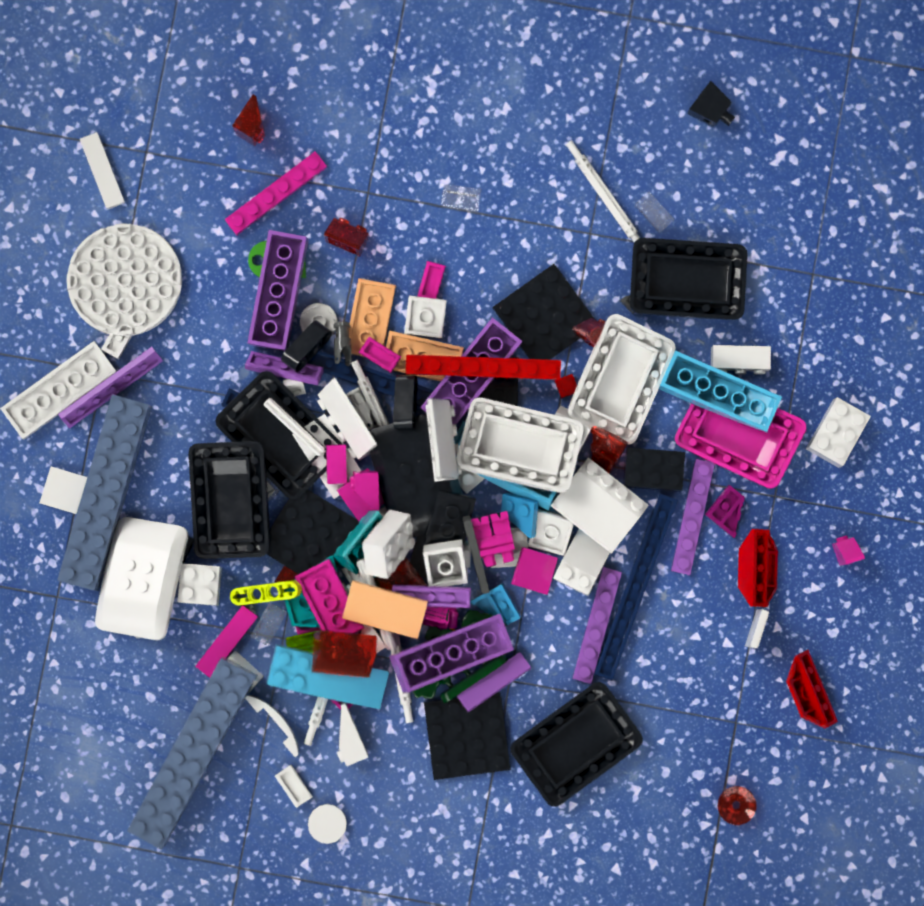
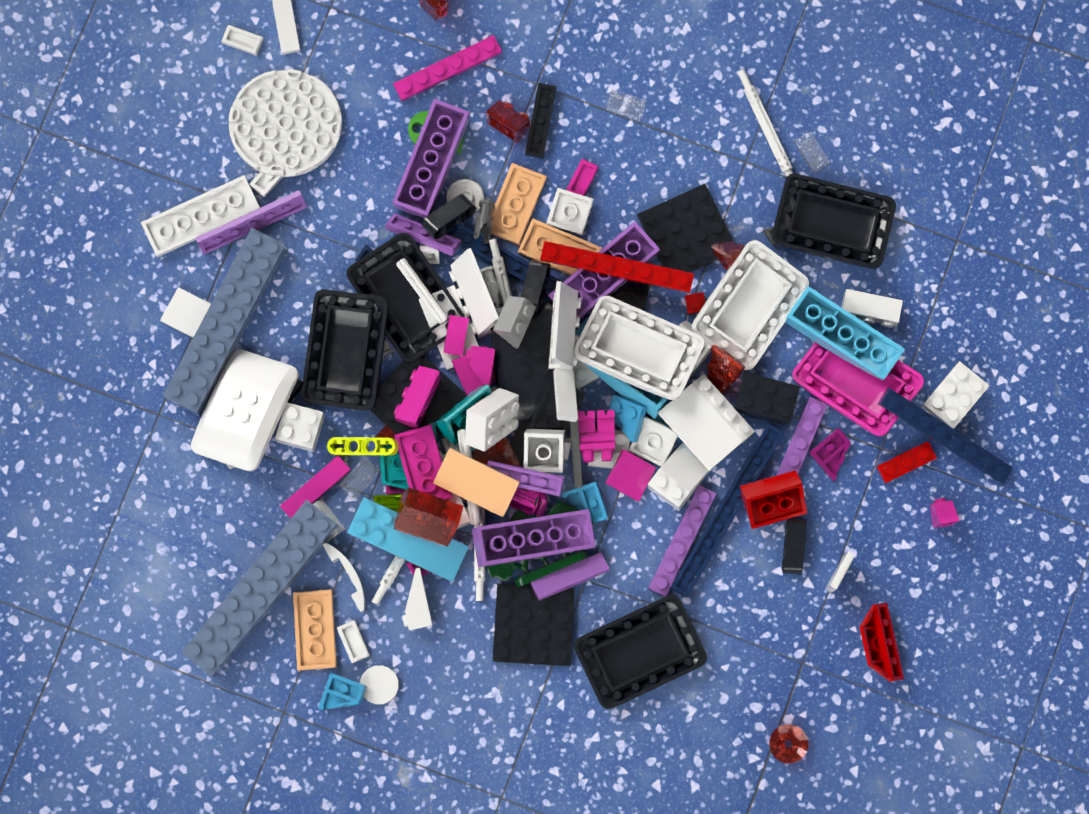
camera: 15 degrees right, 5 degrees down
(64, 202) = (242, 40): none -> white tile
(253, 781) = (314, 630): none -> light nougat tile
(292, 839) = (341, 693): none -> dark azure wing
(310, 534) = (417, 396): none -> dark pink slope
(379, 230) = (540, 121): none -> black plate
(380, 355) = (518, 239): dark pink tile -> none
(392, 441) = (514, 319): none -> light grey slope
(456, 506) = (565, 395): none -> white tile
(679, 569) = (773, 499): none -> red slope
(707, 610) = (794, 546): none -> black beam
(712, 106) = (886, 62): black torso -> none
(758, 568) = (852, 513): red wedge -> none
(802, 506) = (906, 462): none -> red plate
(836, 475) = (945, 436): none -> dark blue plate

